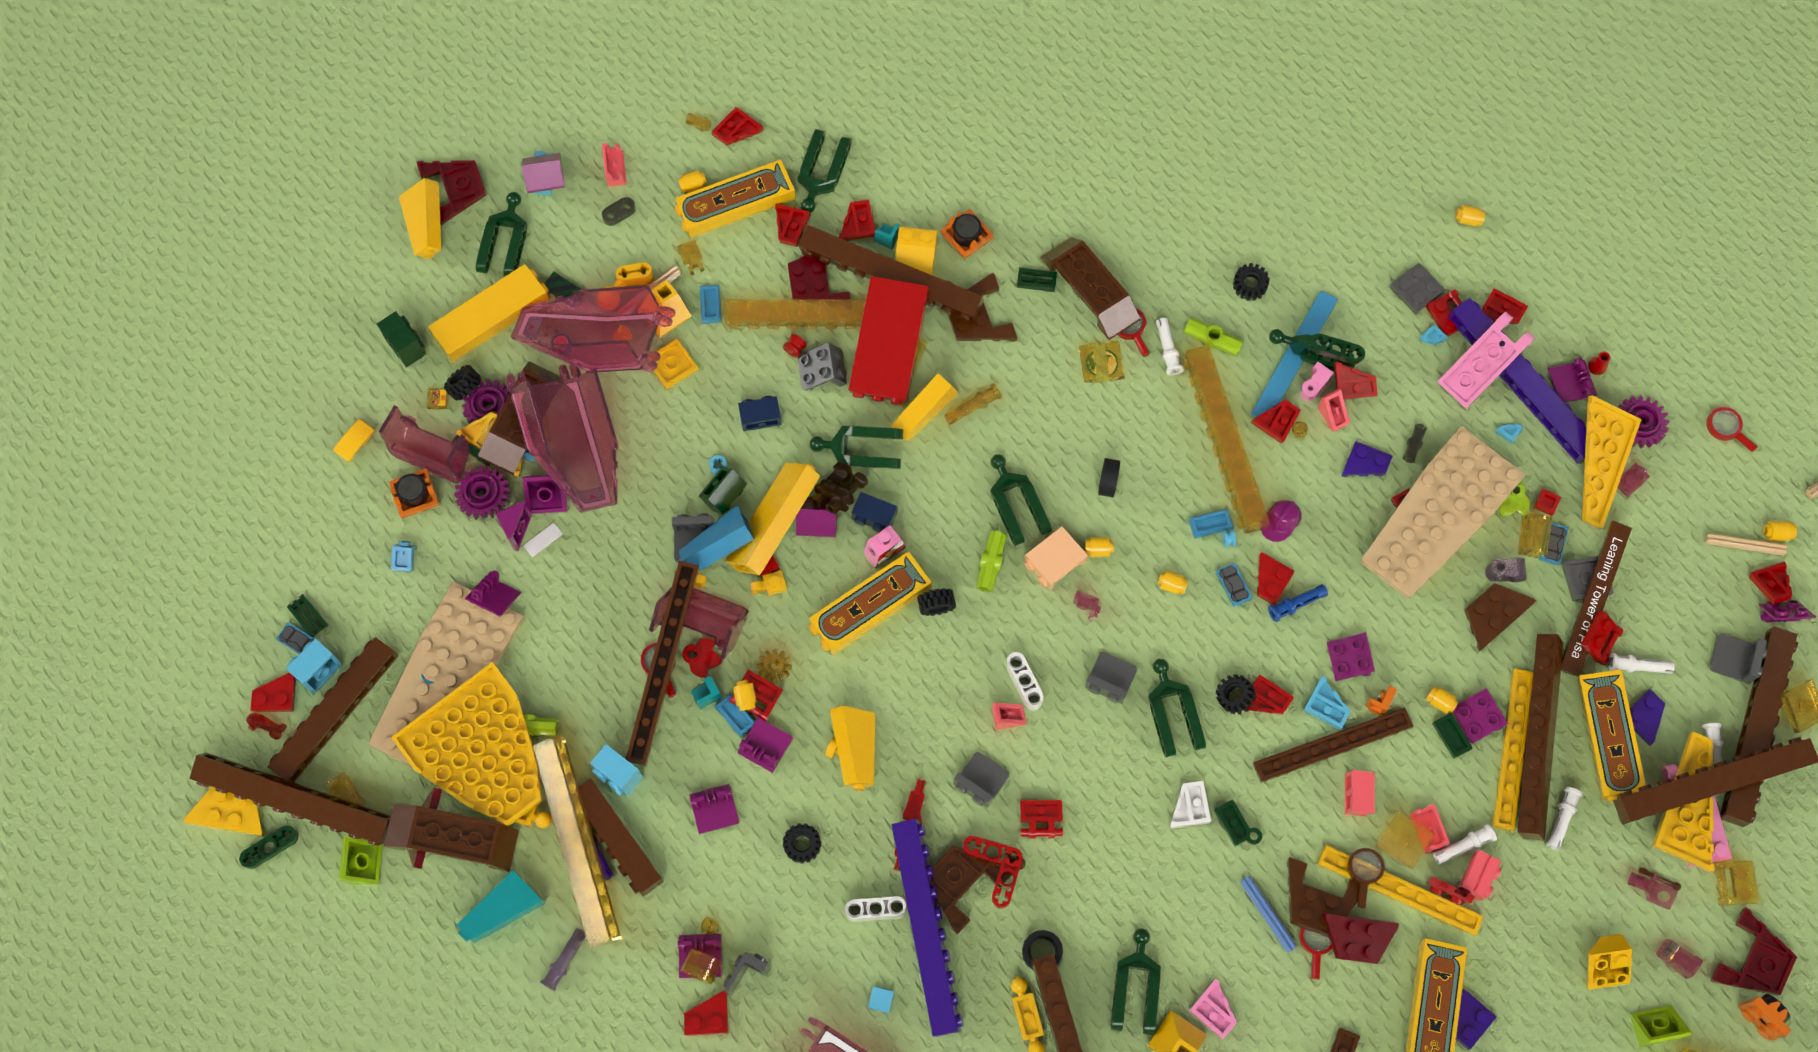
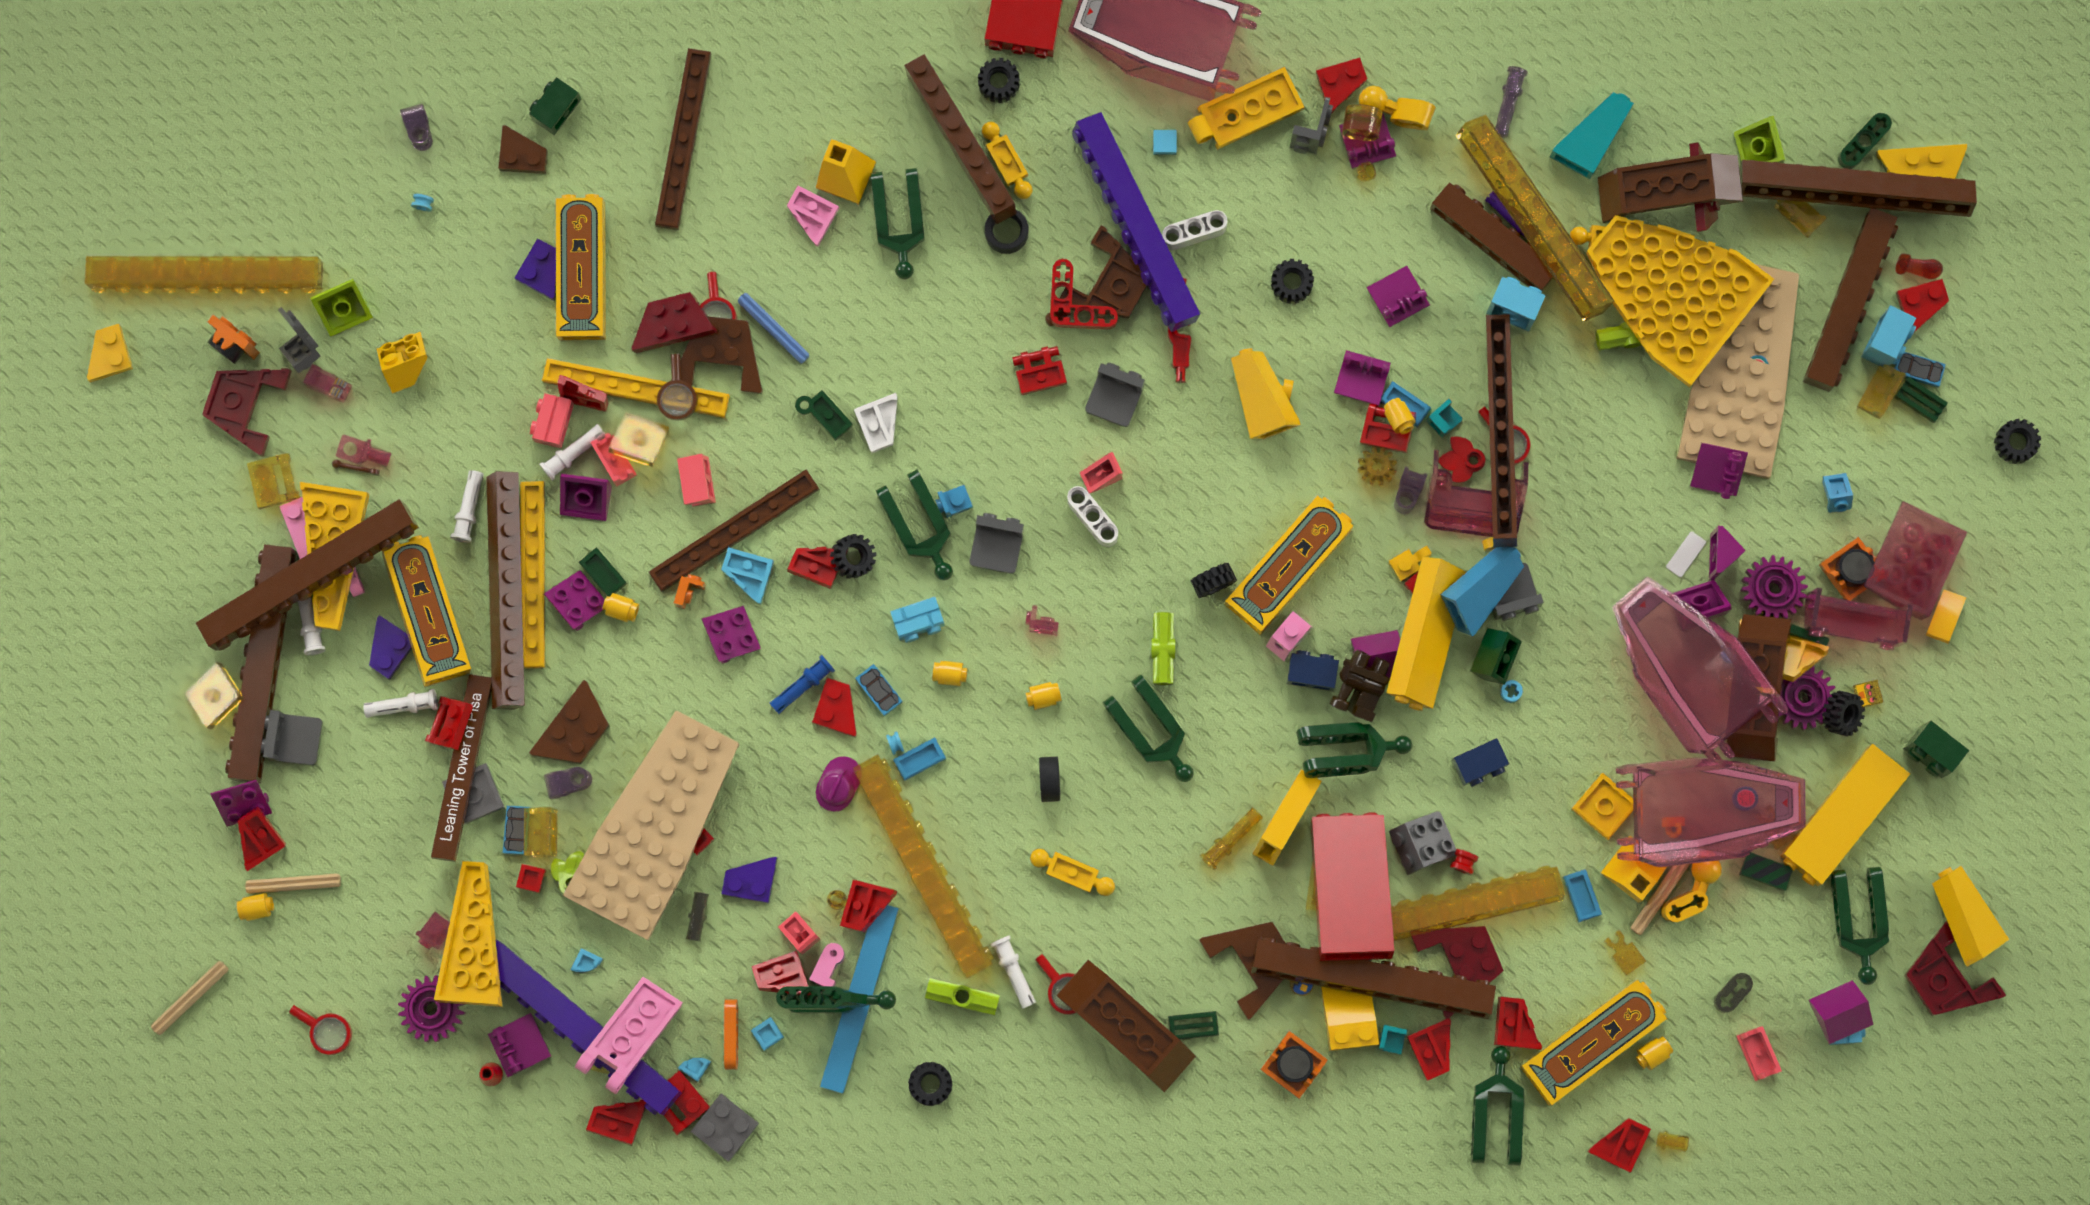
camera: 170 degrees right, 10 degrees up
(235, 554) = (2007, 450): none -> black tyre
(336, 629) = (1881, 390): none -> clear yellow hinge
(361, 481) = (1915, 560): none -> clear pink slope
(683, 988) = (1404, 112): none -> yellow beam
(751, 644) = (1409, 486): none -> piece
(788, 1011) = (1254, 106): none -> yellow hinge
(1055, 558) = (1090, 668): light nougat panel -> none
(1101, 362) = (1090, 933): clear yellow slope -> none
(1106, 408) = (1072, 872): none -> yellow plate
(1140, 724) = (954, 501): none -> dark azure bracket
(1191, 631) = (917, 619): none -> medium azure brick
(1372, 346) = (767, 1033): none -> medium azure tile
(1401, 350) = (731, 1034): none -> orange beam
(1459, 803) = (584, 497): none -> magenta slope
(1705, 997) = (302, 347): none -> dark grey bracket

